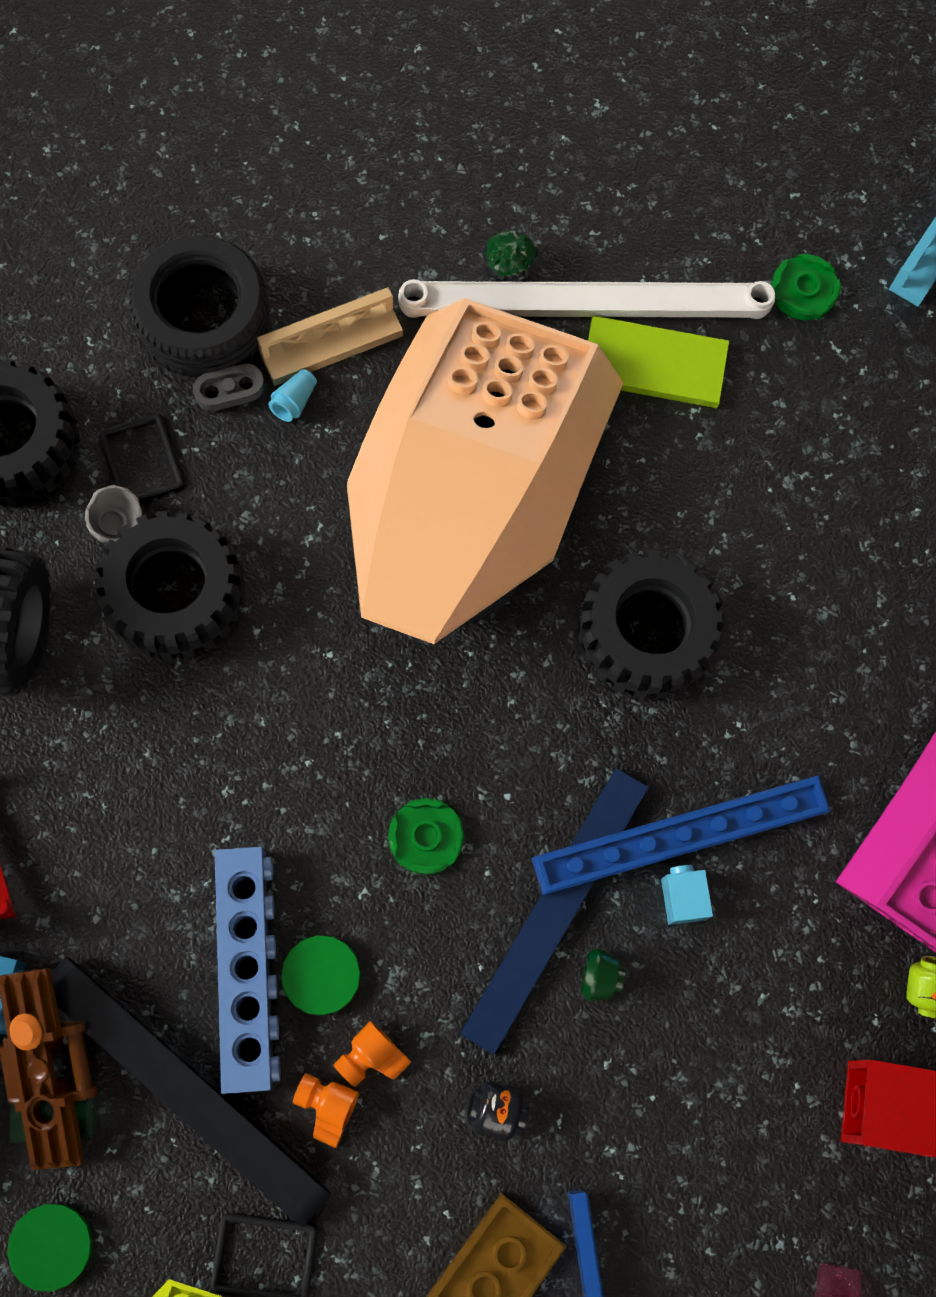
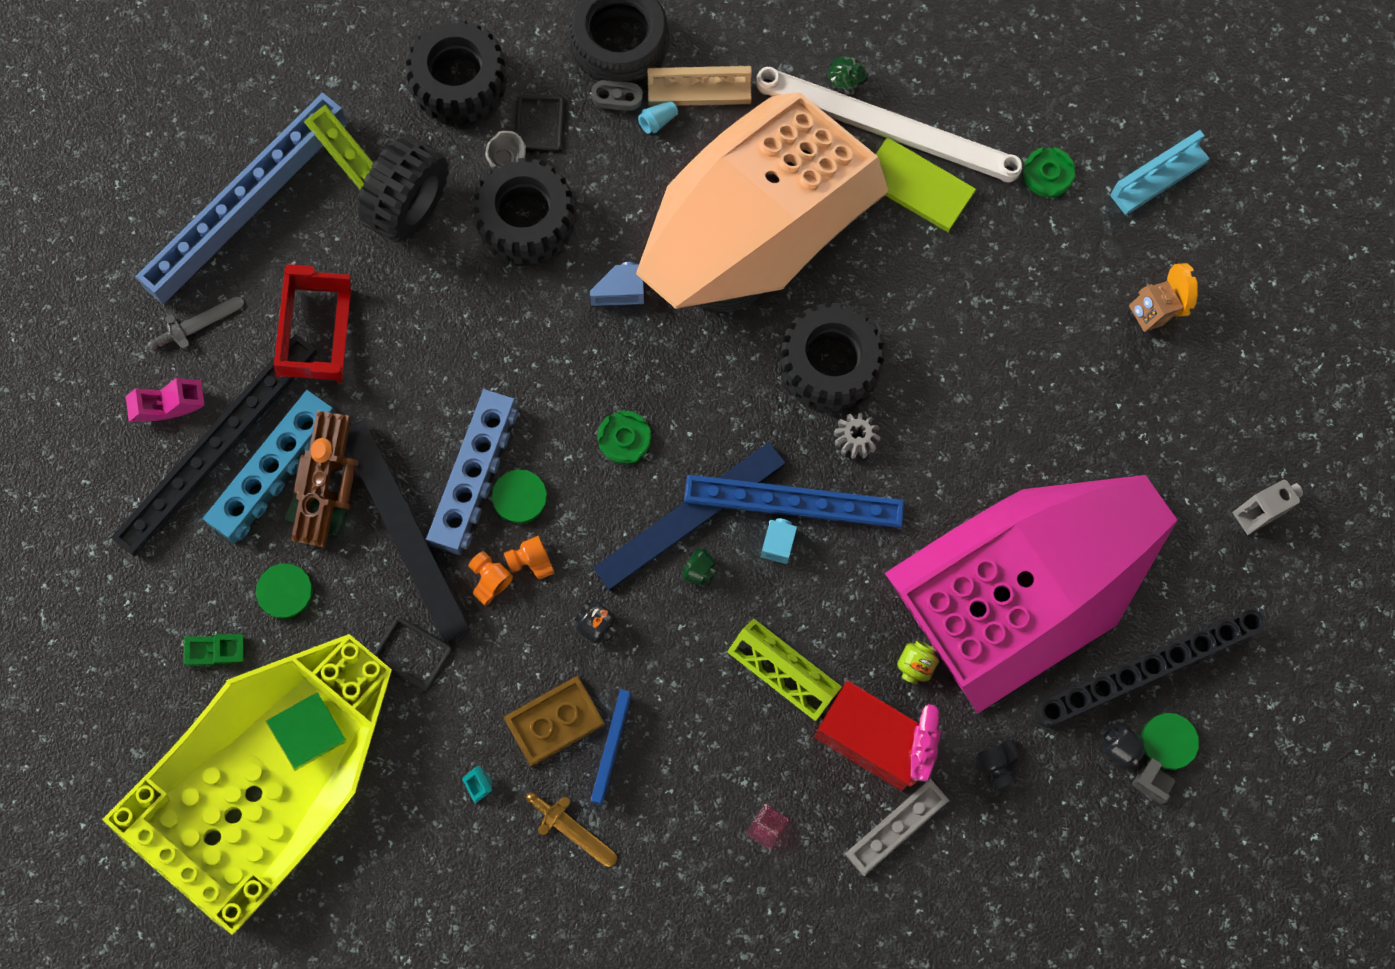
camera: 25 degrees right, 0 degrees up
(338, 636) = (619, 287): none -> medium blue slope
(739, 714) = (860, 444): none -> light grey gear
(772, 1060) = (789, 662): none -> lime fence

